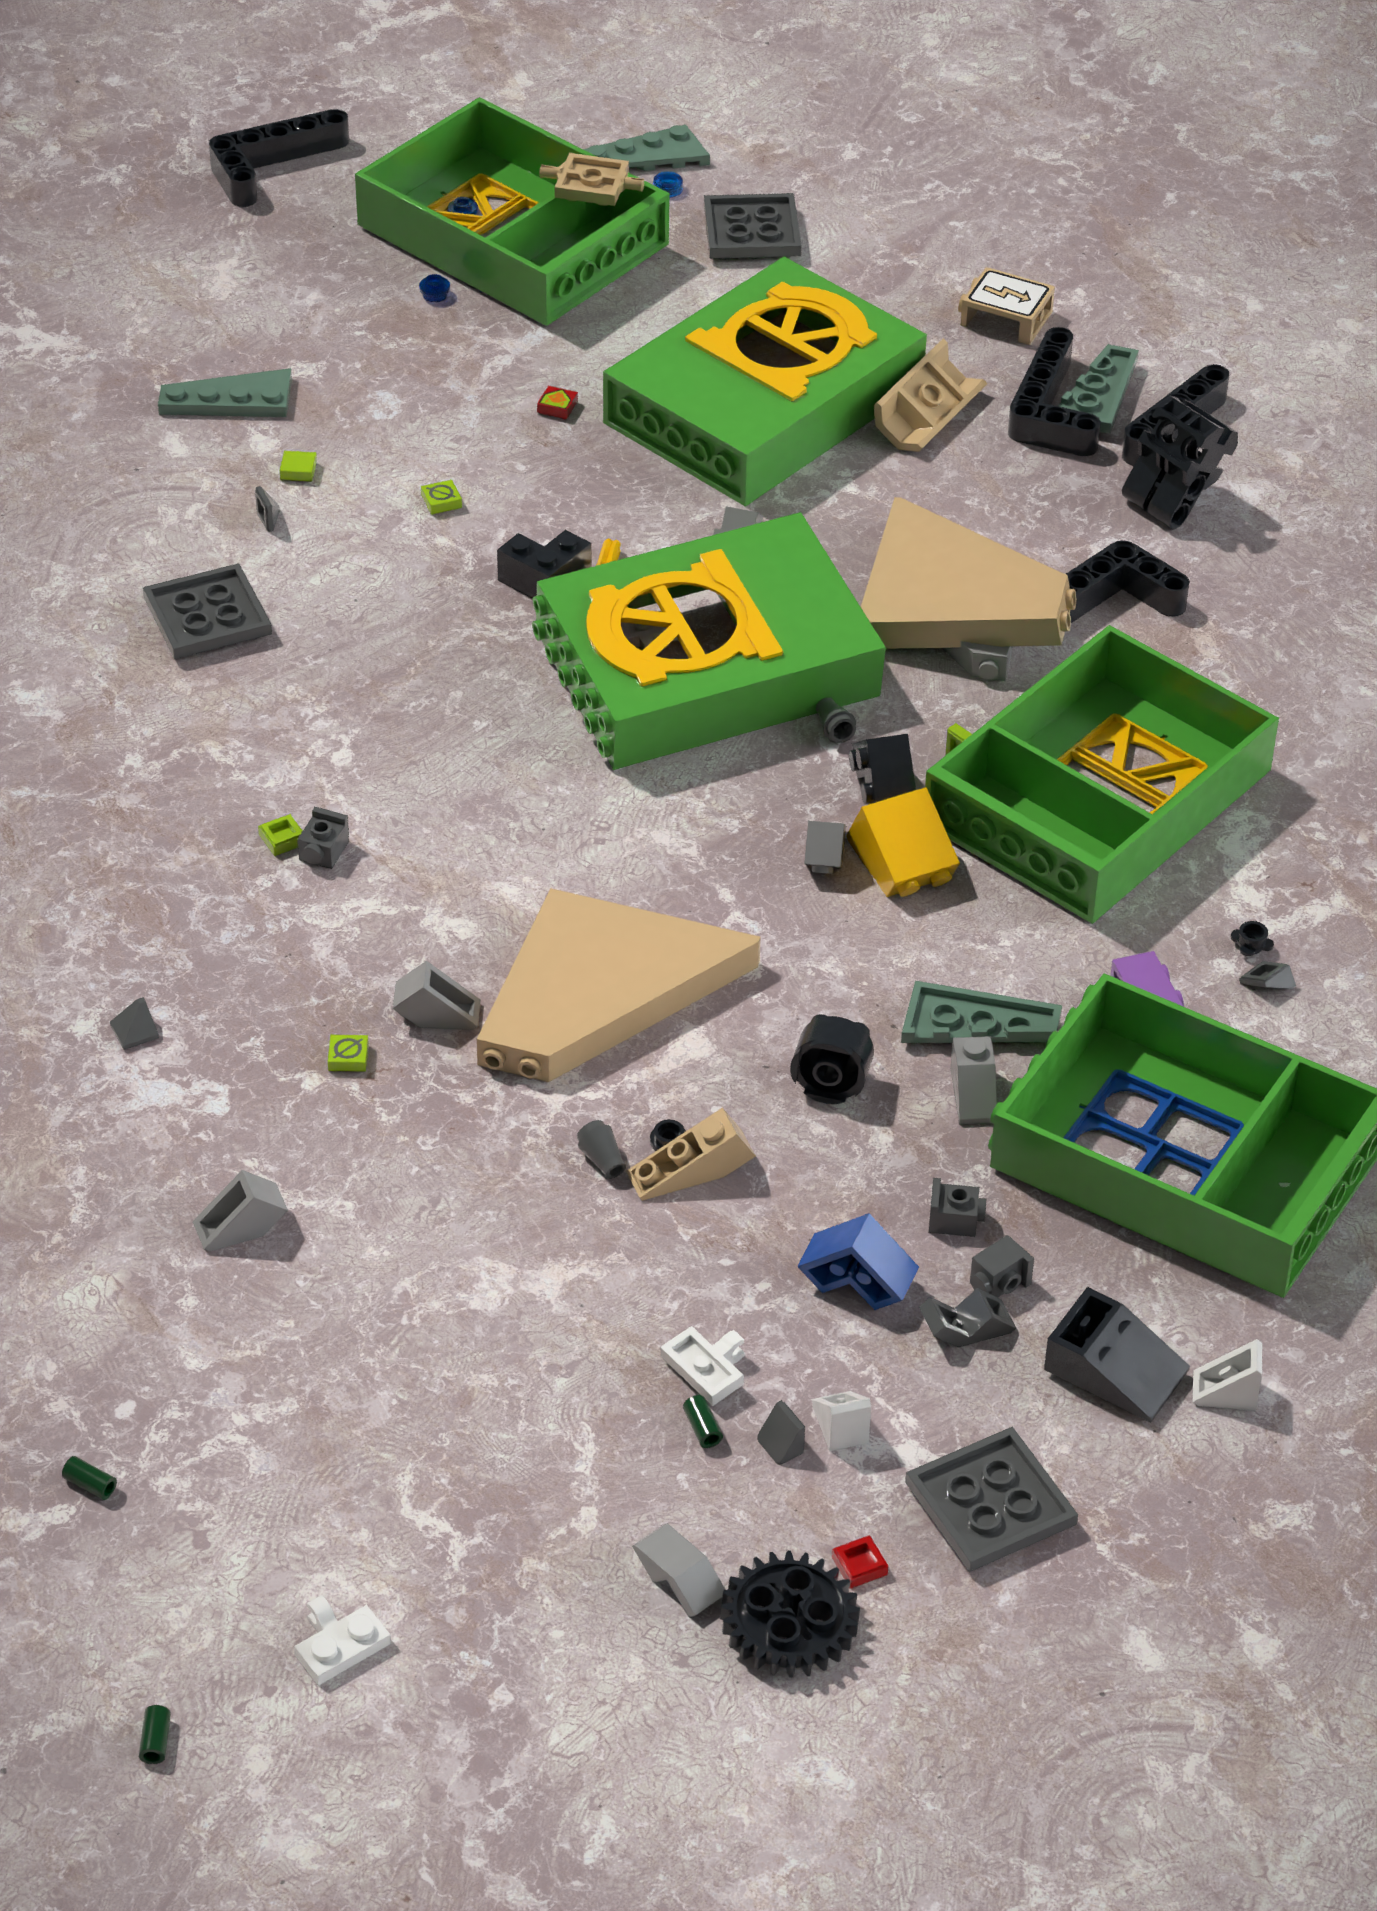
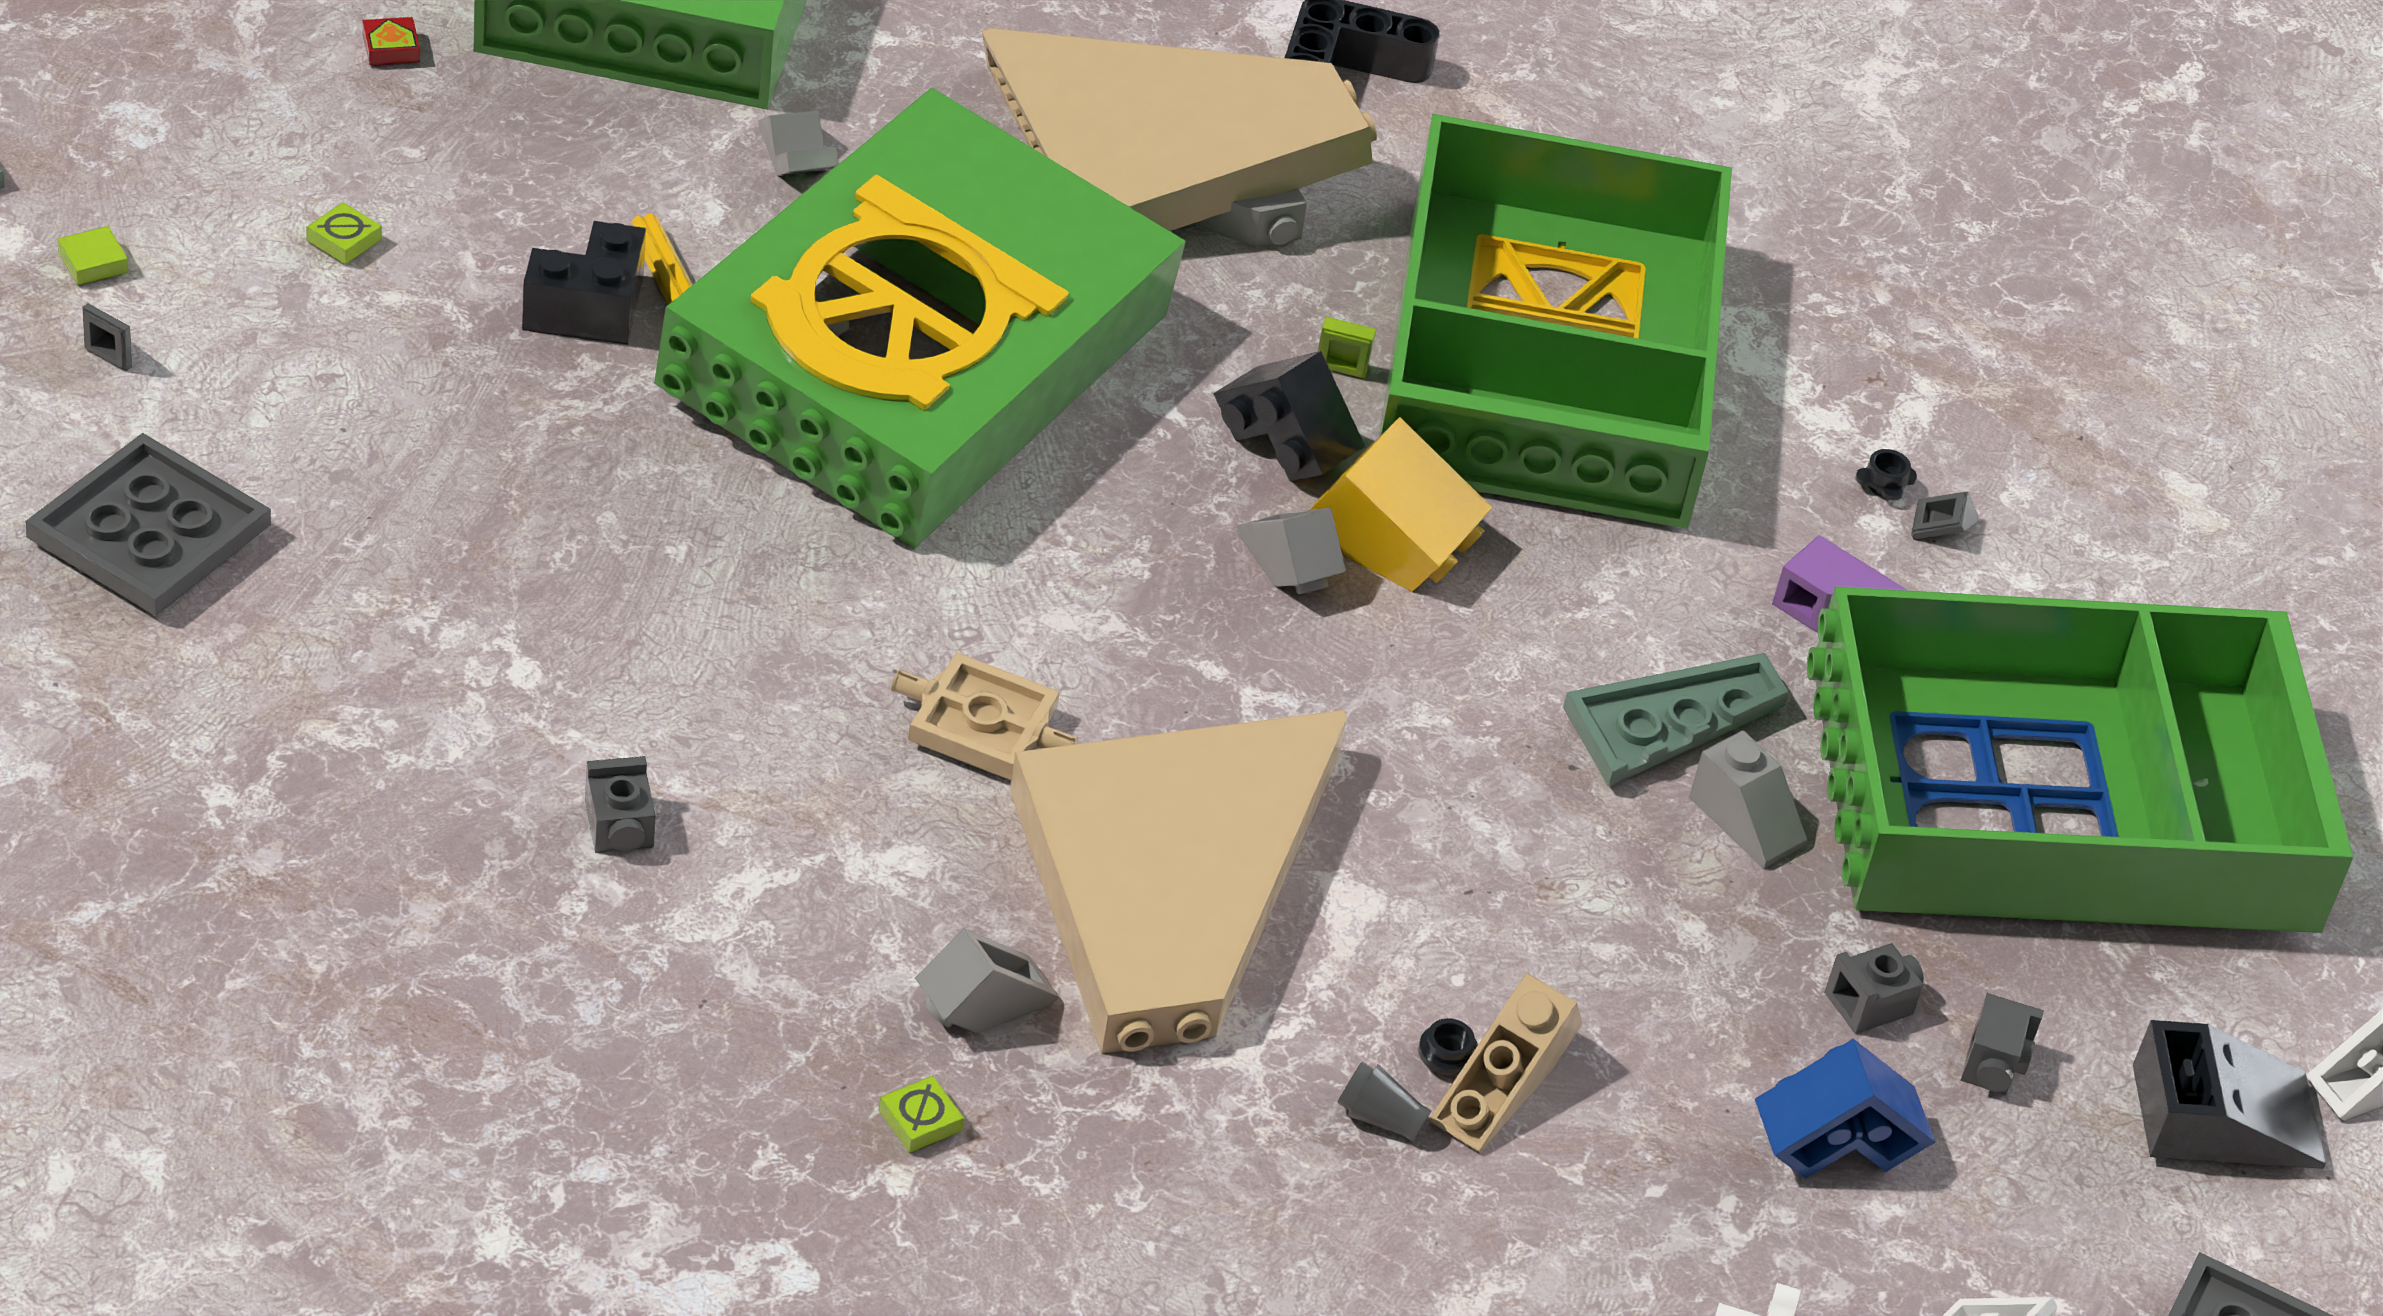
camera: 40 degrees left, 0 degrees up
(134, 1025) = (582, 1207): dark grey slope -> none
(280, 834) = (545, 824): lime tile -> none
(563, 864) = (981, 714): none -> tan plate
(832, 1058) = (1574, 844): black brick -> none
(836, 721) = (1155, 369): dark grey cone -> none
(972, 1321) = (2016, 1129): dark grey slope -> none

